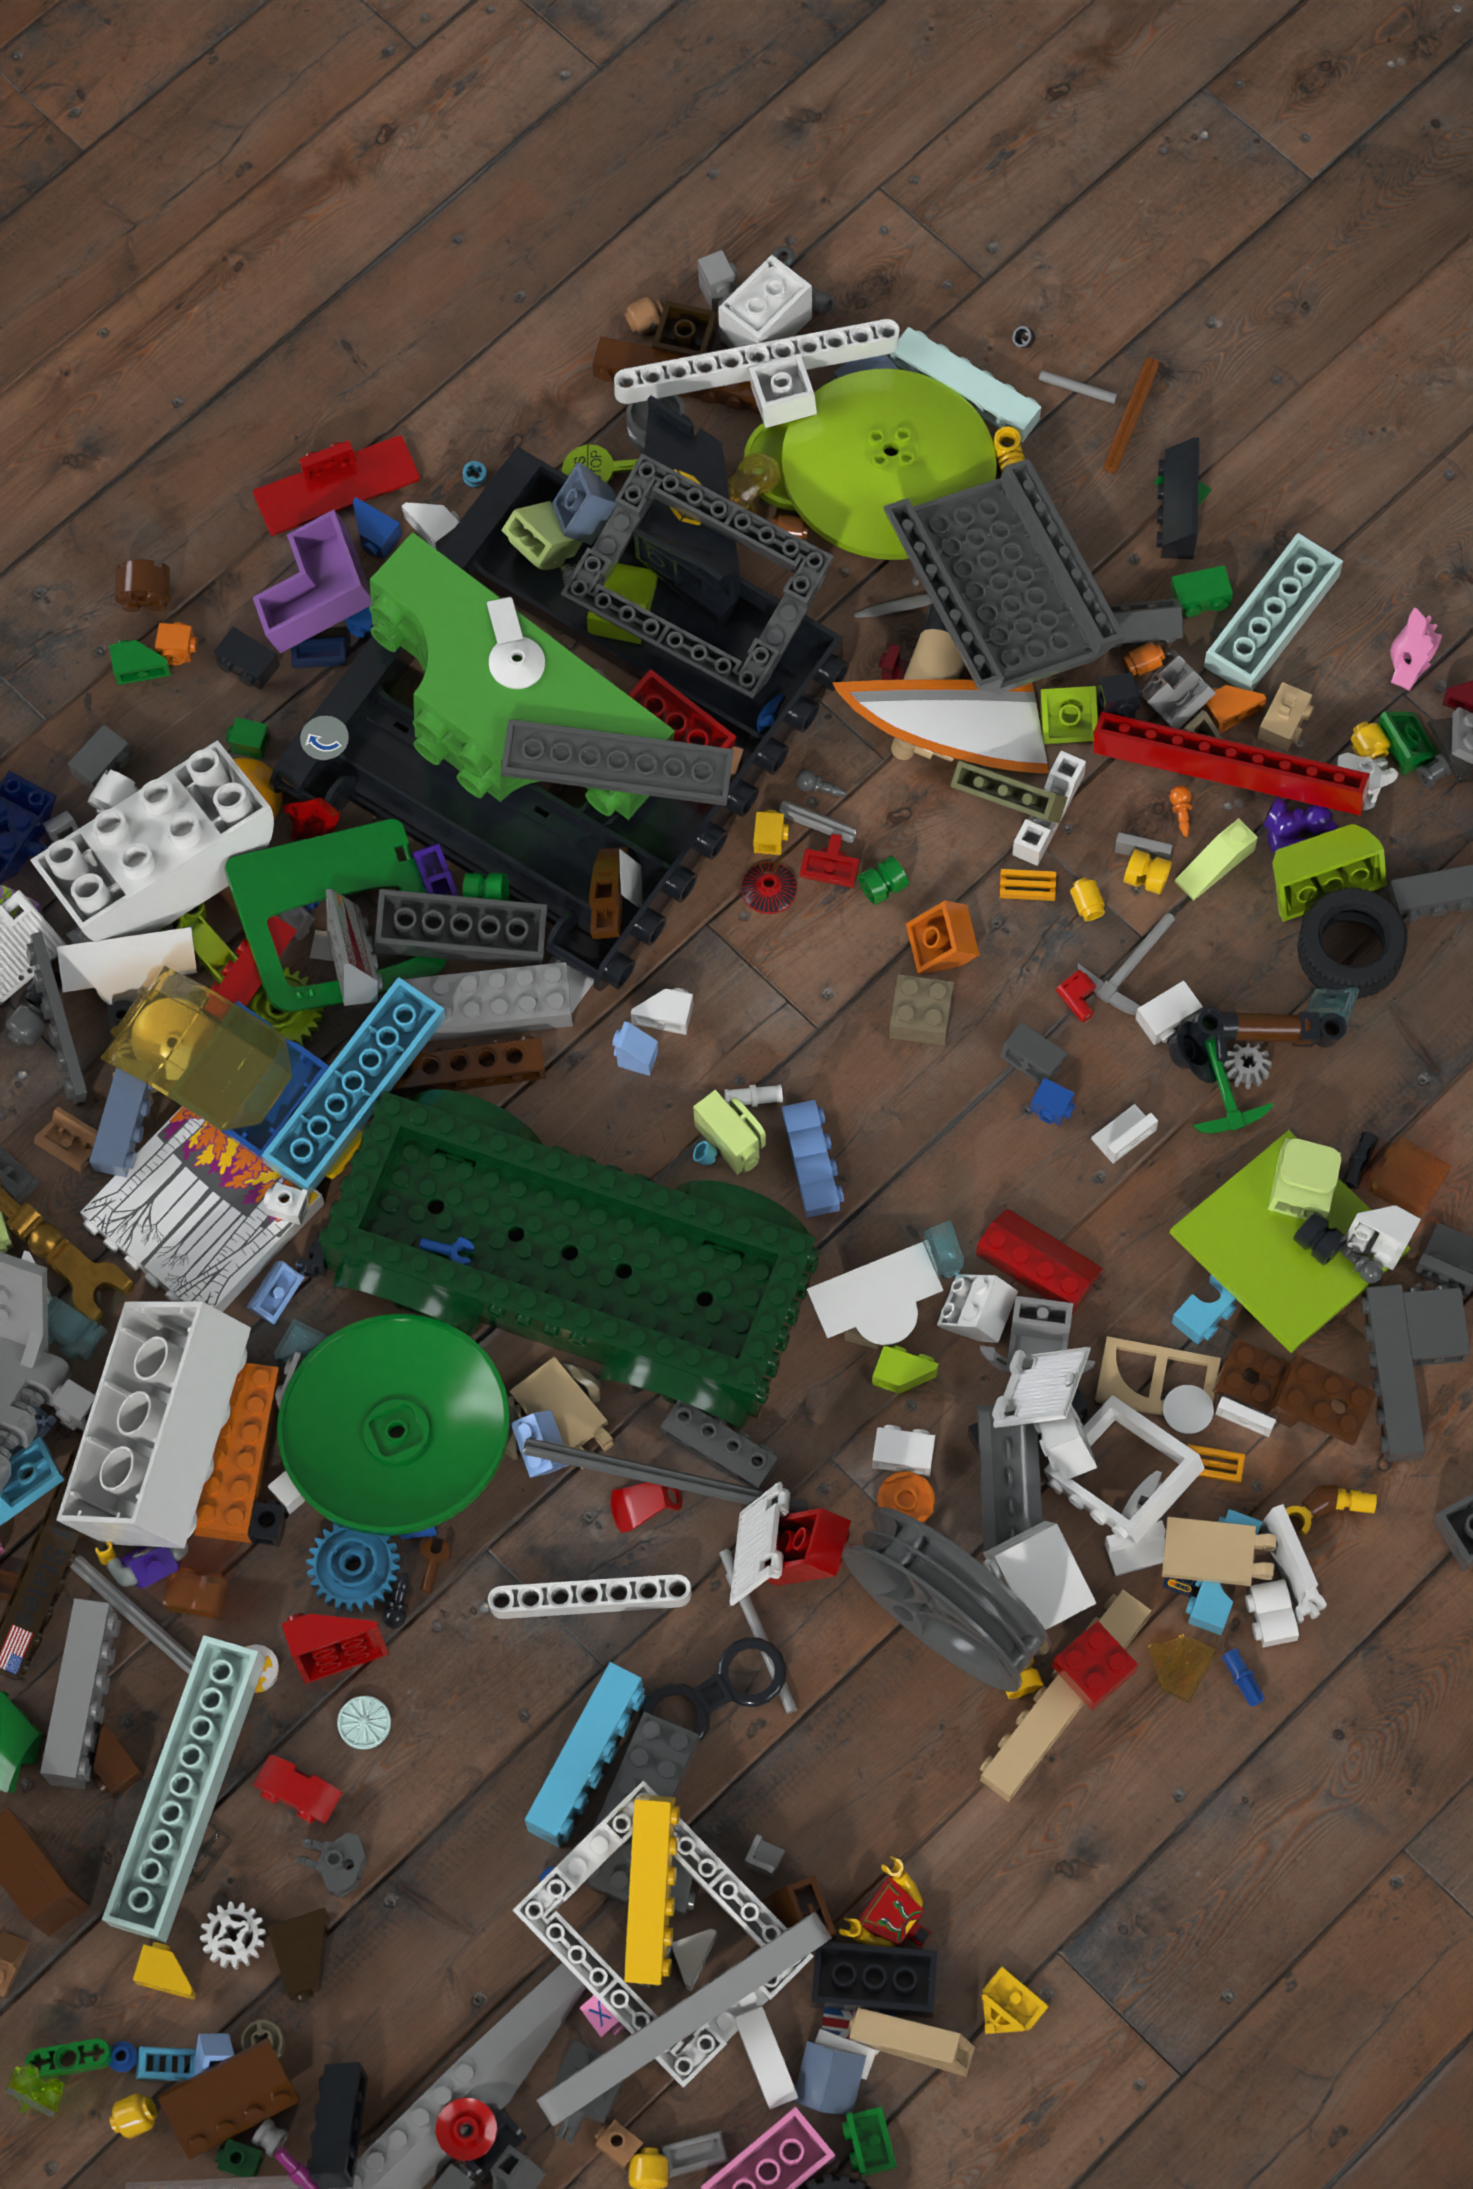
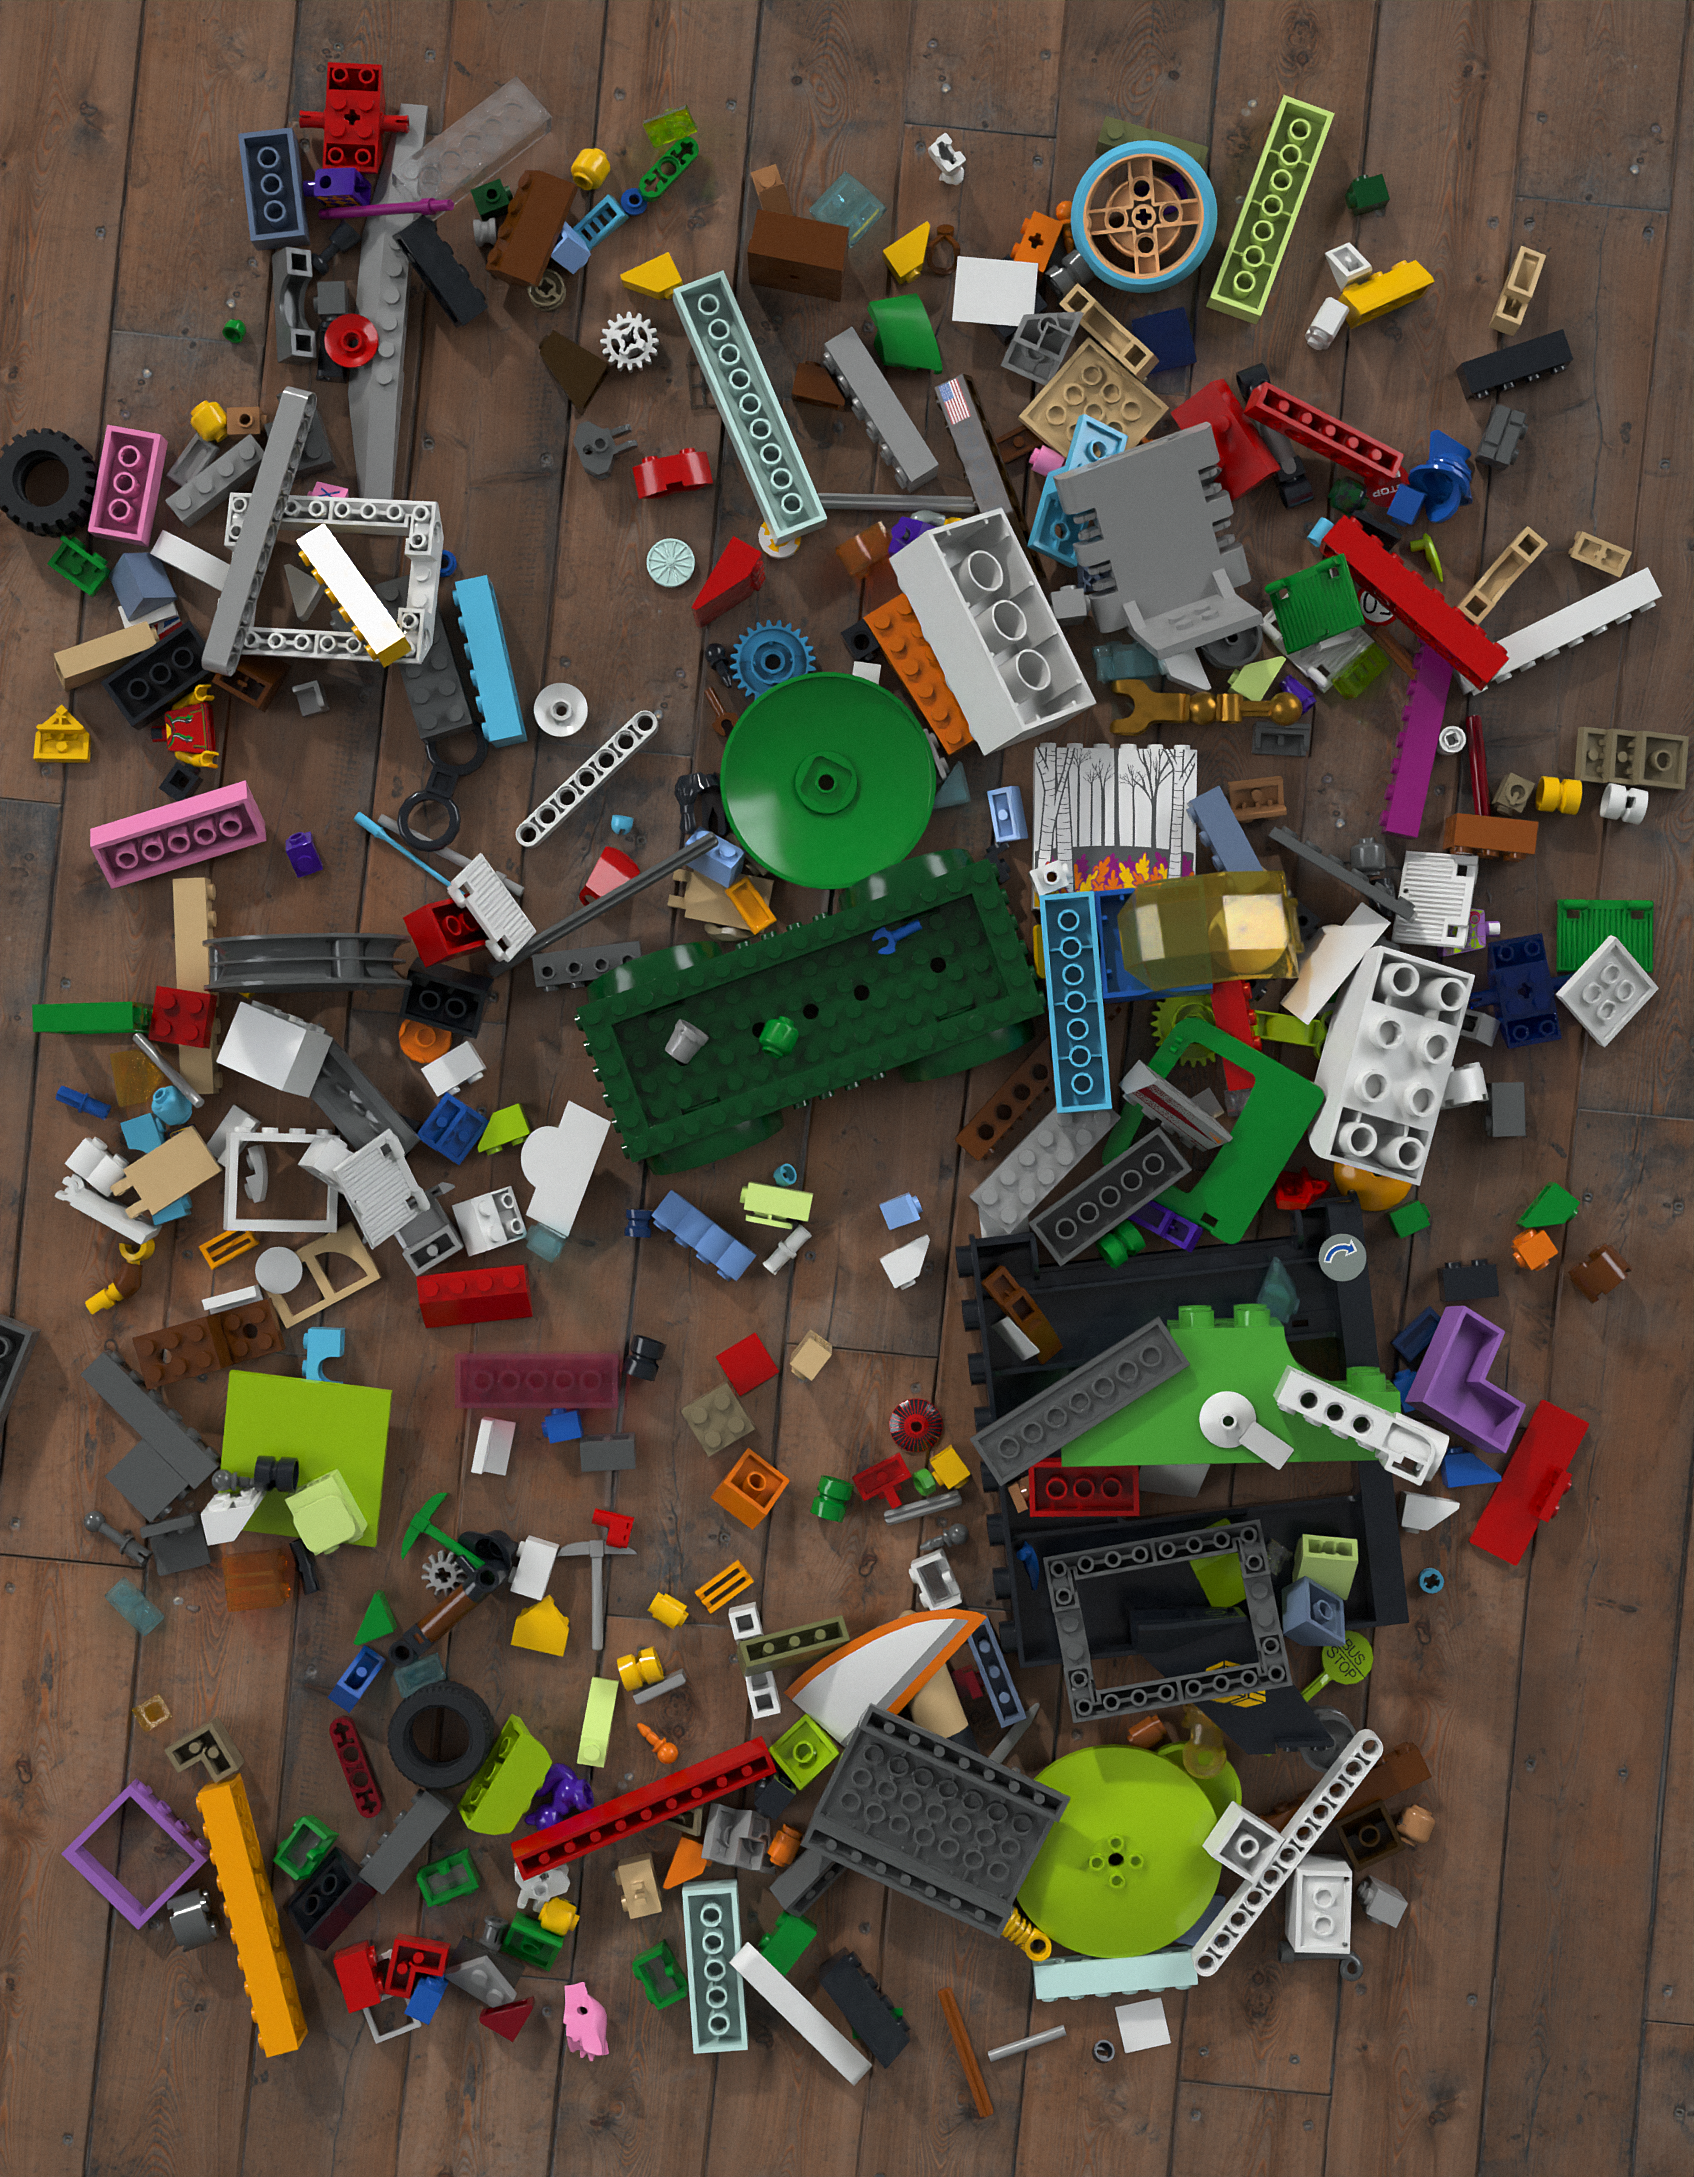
camera: 140 degrees right, 20 degrees up
(398, 757) = (1279, 1292): none -> clear light blue slope
(405, 542) = (1388, 1432): none -> white brick
(511, 1503) = (709, 788): none -> black piece
(545, 1383) = (750, 905): none -> light orange tile
(557, 1658) = (558, 696): none -> white dish
(592, 1538) = (621, 822): none -> medium azure hinge
(612, 1244) = (778, 1037): none -> green head
(685, 2112) = (217, 481): none -> light grey brick
(690, 1300) = (685, 1041): none -> light grey piece
(799, 837) = (924, 1482): none -> bright green tile
(802, 1699) = (378, 832): none -> medium azure piece
(803, 987) = (810, 1356): none -> tan brick
(853, 1495) = (446, 998): none -> black slope
(854, 758) = (936, 1581): none -> white window
(855, 1209) = (638, 1223): none -> dark blue wheel
(863, 1037) = (747, 1364): none -> red sticker
(870, 644) = (996, 1674): none -> sand blue brick
(881, 1733) = (303, 854): none -> dark purple bracket
(943, 1868) = (172, 782): none -> black brick
(944, 1100) = (644, 1357): none -> black wheel
(944, 1402) = (452, 1128): none -> blue slope
(973, 1828) = (178, 834): none -> bright pink brick
(977, 335) = (1142, 2025): none -> white sticker
(1042, 1150) = (537, 1379): none -> clear pink brick
(1145, 1640) = (168, 1070): none -> light grey bar
(1167, 1610) = (171, 1105): none -> medium azure head
(1168, 1718) = (92, 1018): none -> green window
(1203, 964) = (541, 1628): none -> yellow slope
(1234, 529) = (800, 2014): none -> white beam
(1324, 640) = (660, 1975): none -> green window
(1336, 1071) = (377, 1620): none -> green slope
(1388, 1039) = (356, 1678): none -> blue slope
(1436, 837) = (448, 1878): none -> green window
(1448, 978) = (353, 1767): none -> dark red beam

